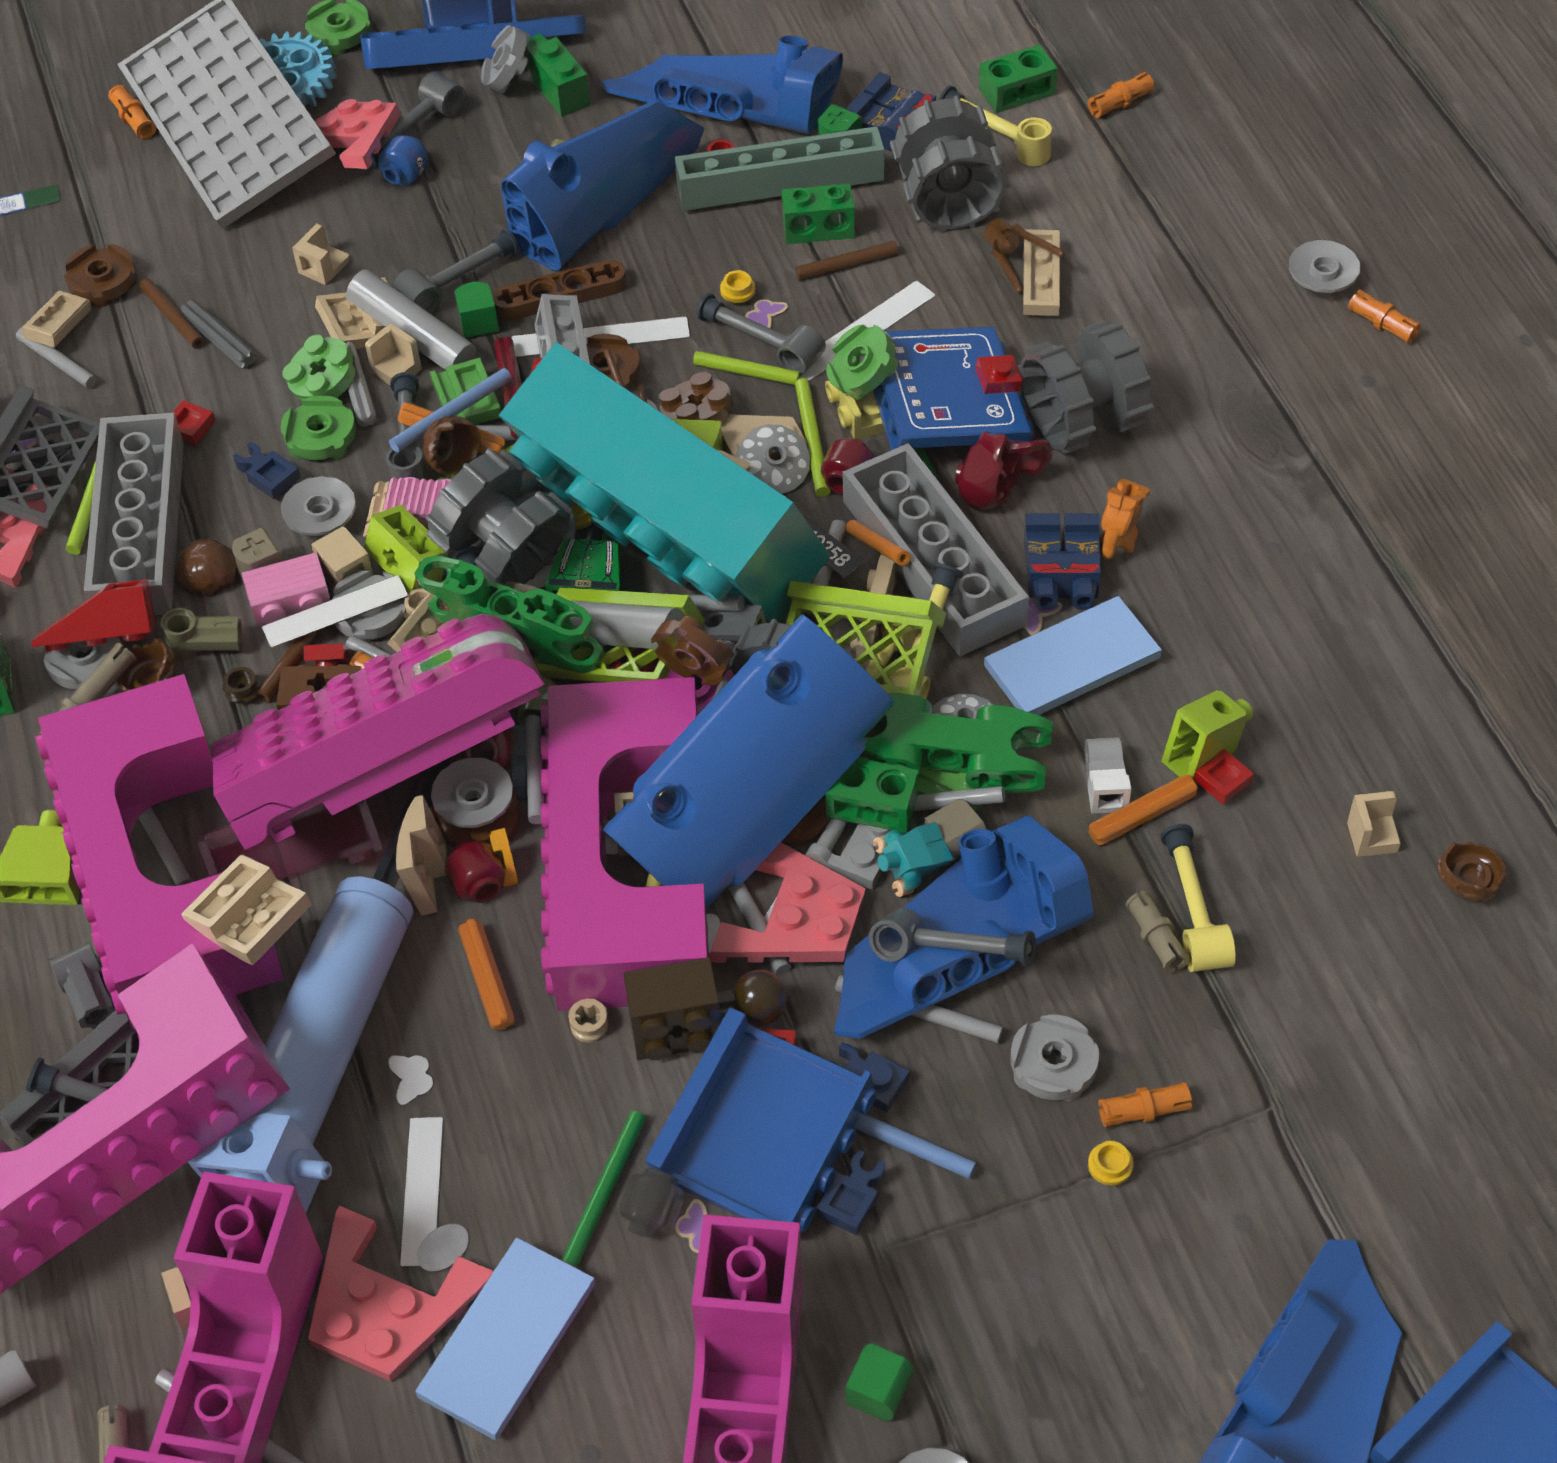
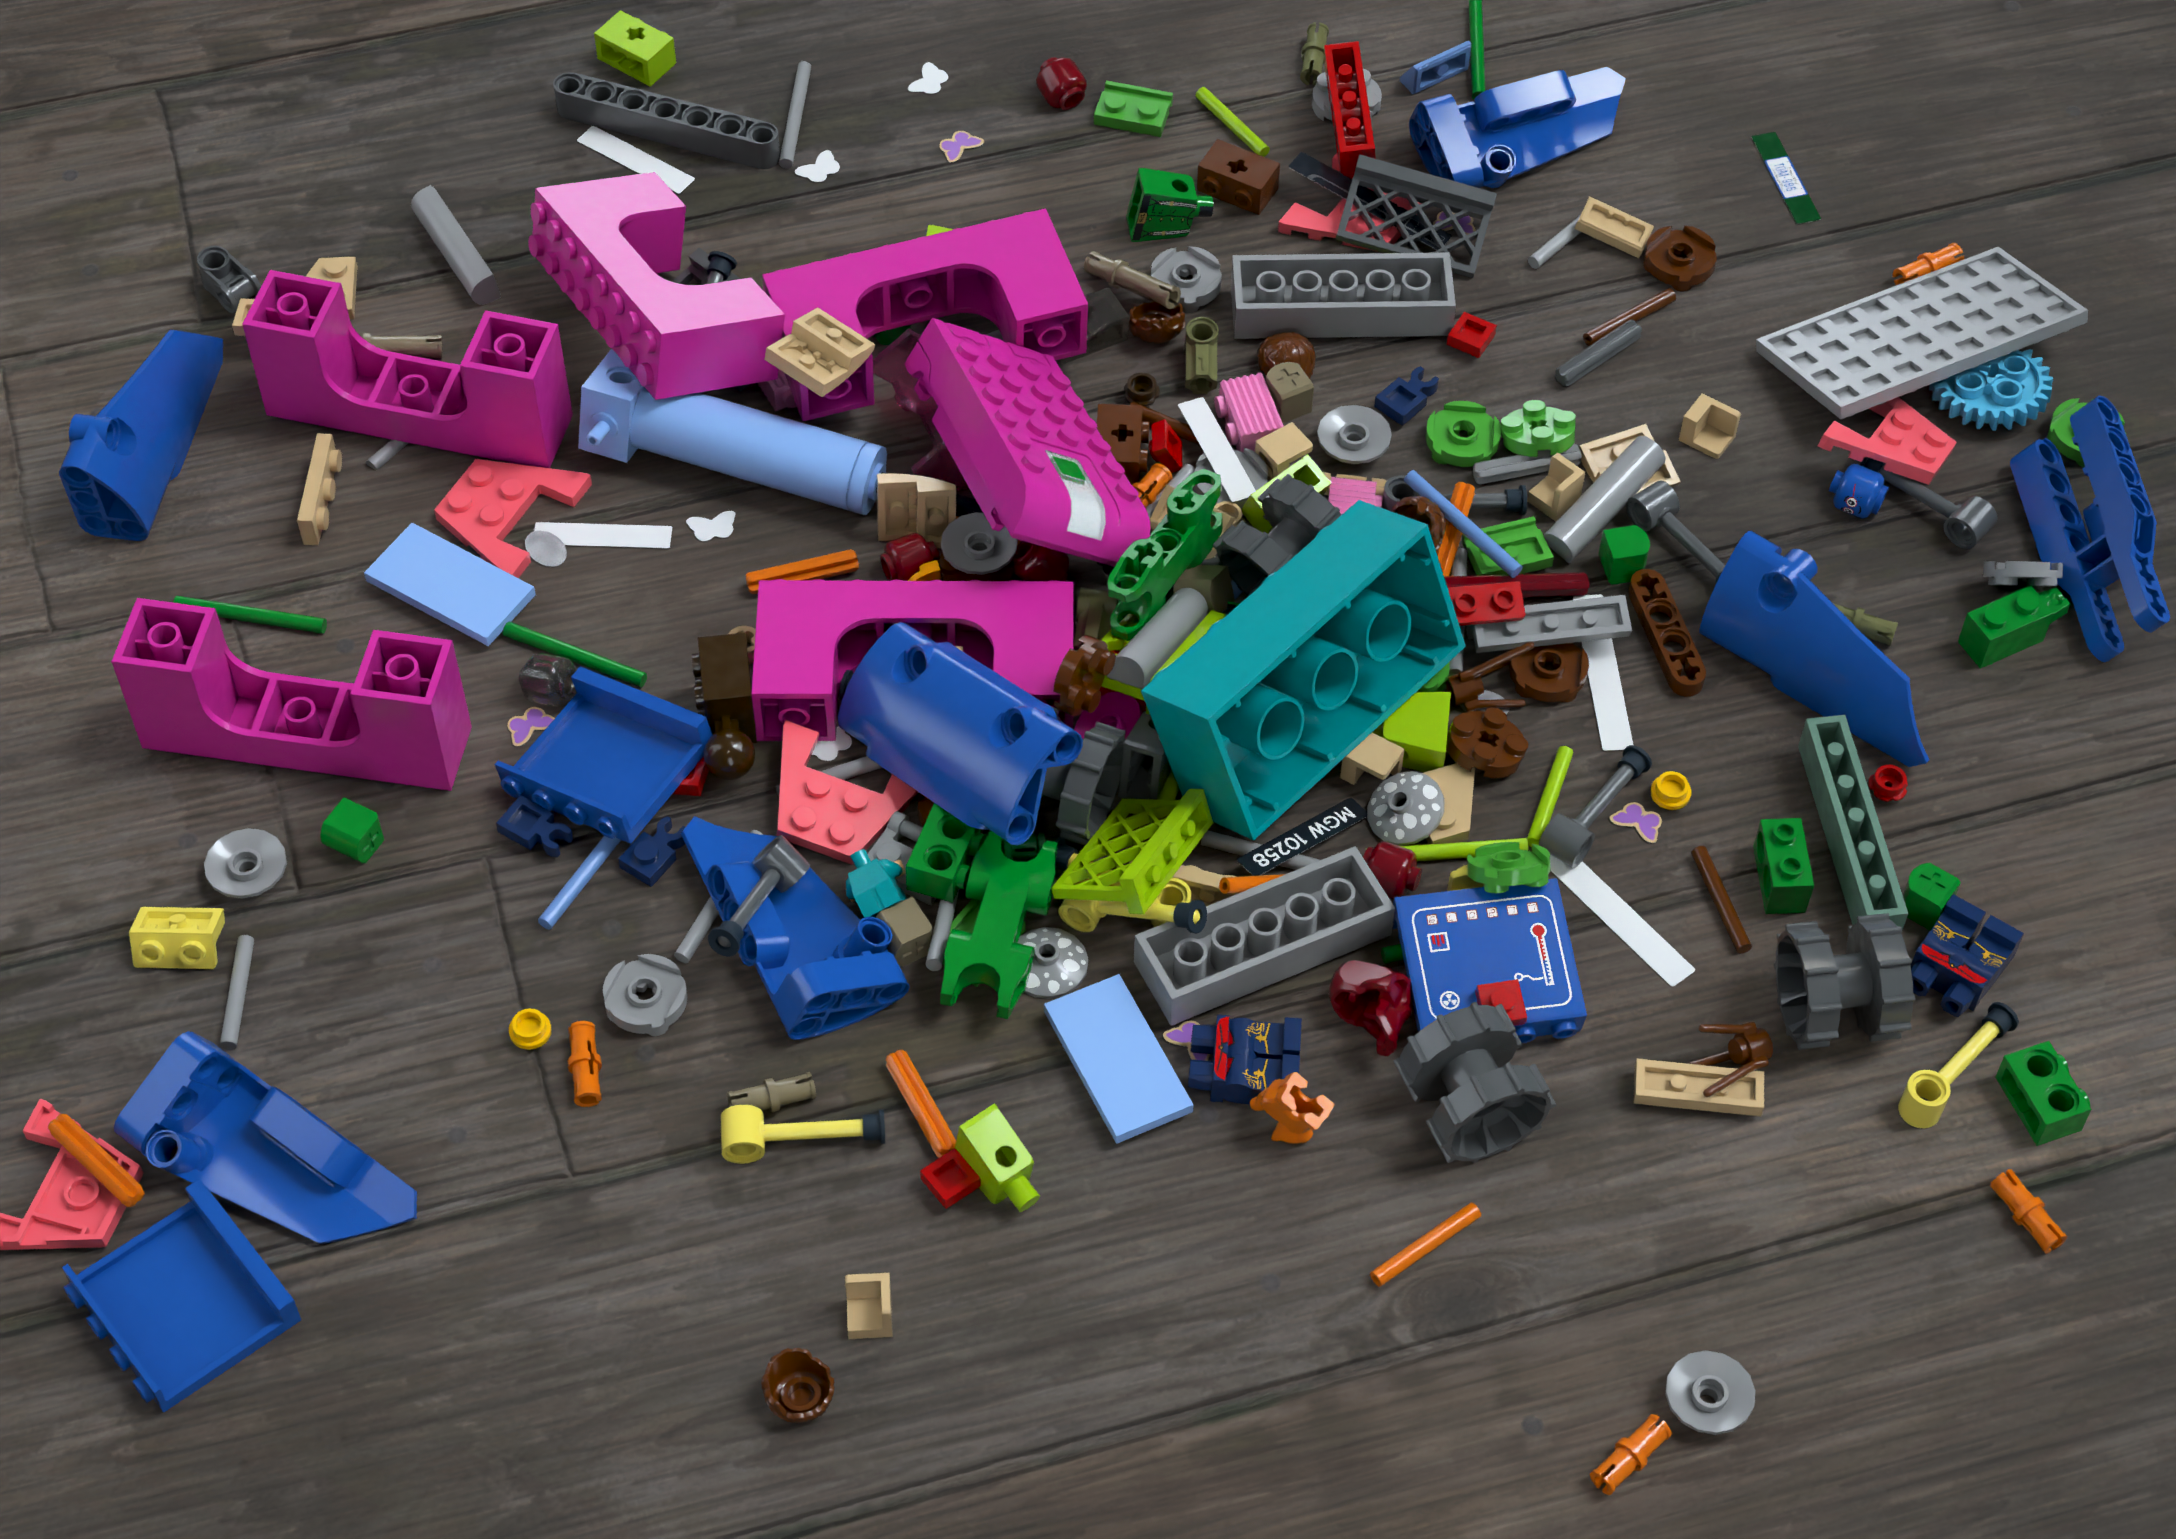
camera: 90 degrees right, 0 degrees up
(111, 612) = (1205, 276): red slope -> none
(769, 89) = (2009, 803): blue panel -> none
(1106, 774) = (965, 1071): leg -> none
(1219, 444) = (1425, 1244): none -> orange piece

